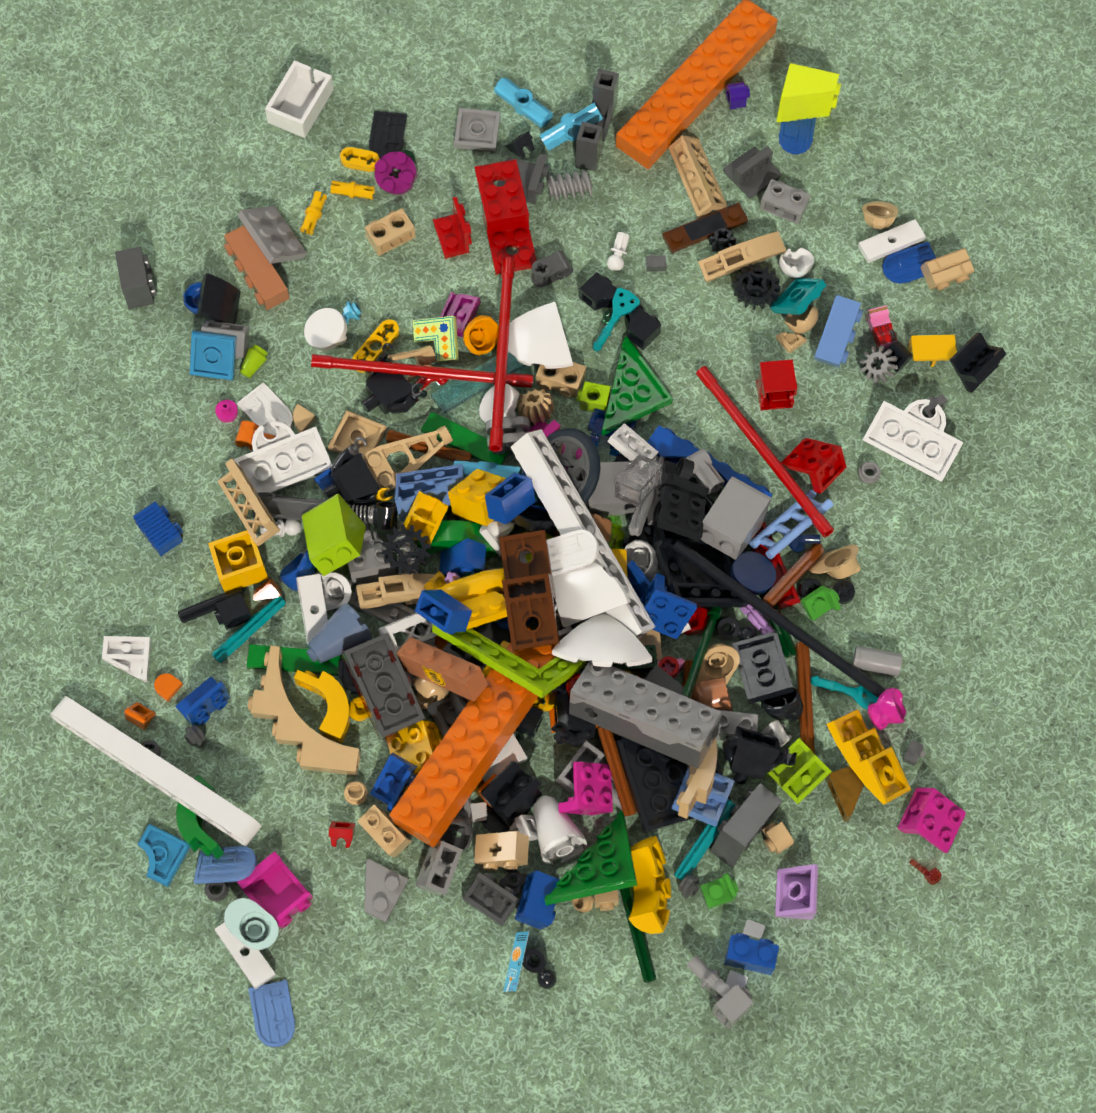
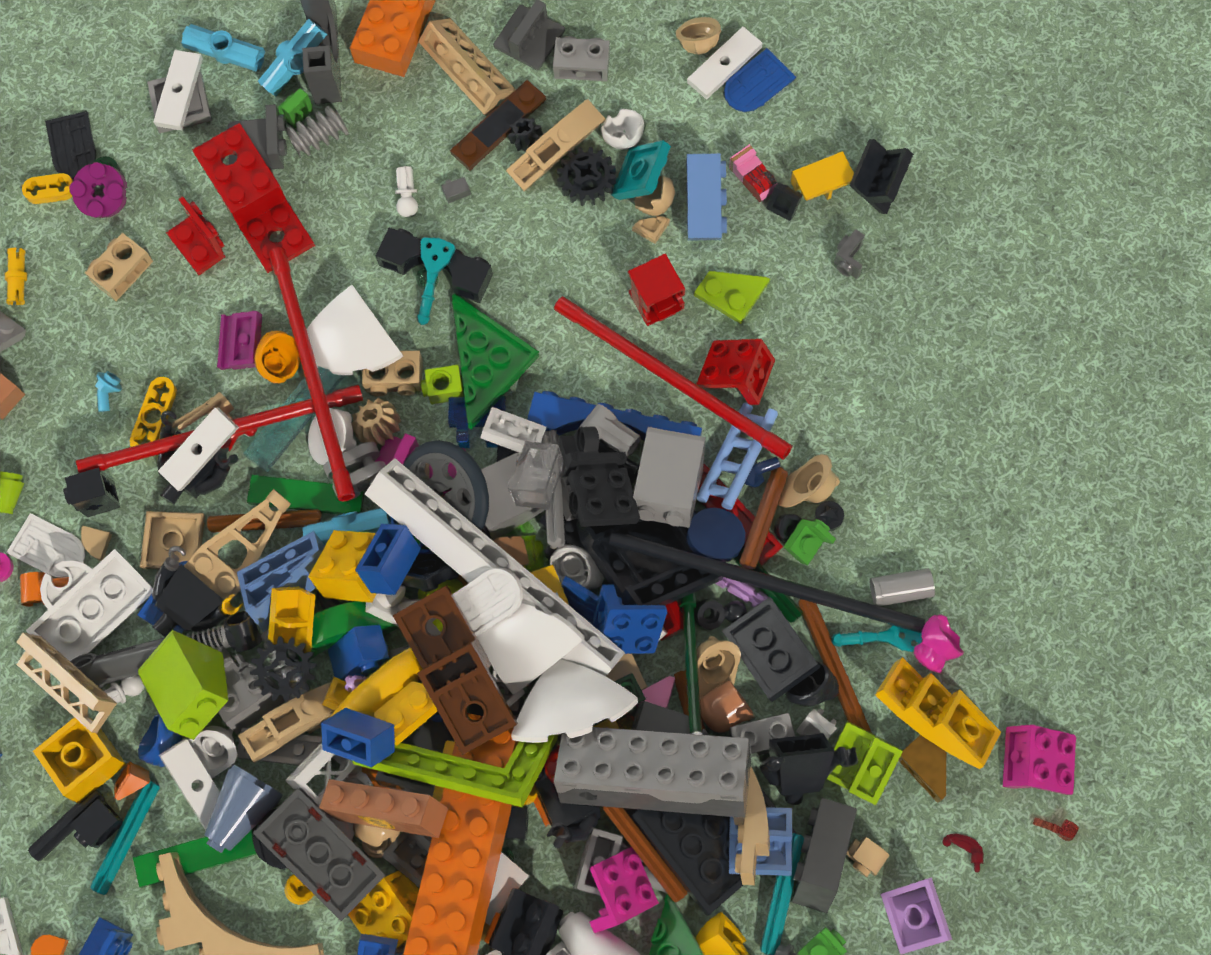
camera: 15 degrees left, 5 degrees up
(313, 381) = (91, 492): none -> black brick
(326, 329) = (83, 419): white tile -> none
(338, 713) = (276, 909): yellow arch -> none
(352, 189) = (53, 230): yellow pin -> none
(389, 382) = (186, 461): none -> white tile
(441, 331) = (231, 371): yellowish green tile -> none
(479, 121) = (180, 77): none -> white tile
(523, 140) = (234, 102): black tile -> none
(552, 268) = (332, 242): dark grey piece -> none
(561, 163) = (296, 107): none -> bright green bracket
(673, 663) = (662, 686): red bush -> none
(832, 408) = (731, 292): none -> lime wing
(855, 858) = (969, 845): none -> dark red piece
(871, 466) = (807, 348): light grey plate -> none
(885, 367) = (776, 221): light grey gear -> none
(913, 753) = (987, 685): flat silver piece -> none
(914, 437) = (843, 294): white plate -> none
(947, 269) = (803, 73): tan brick -> none

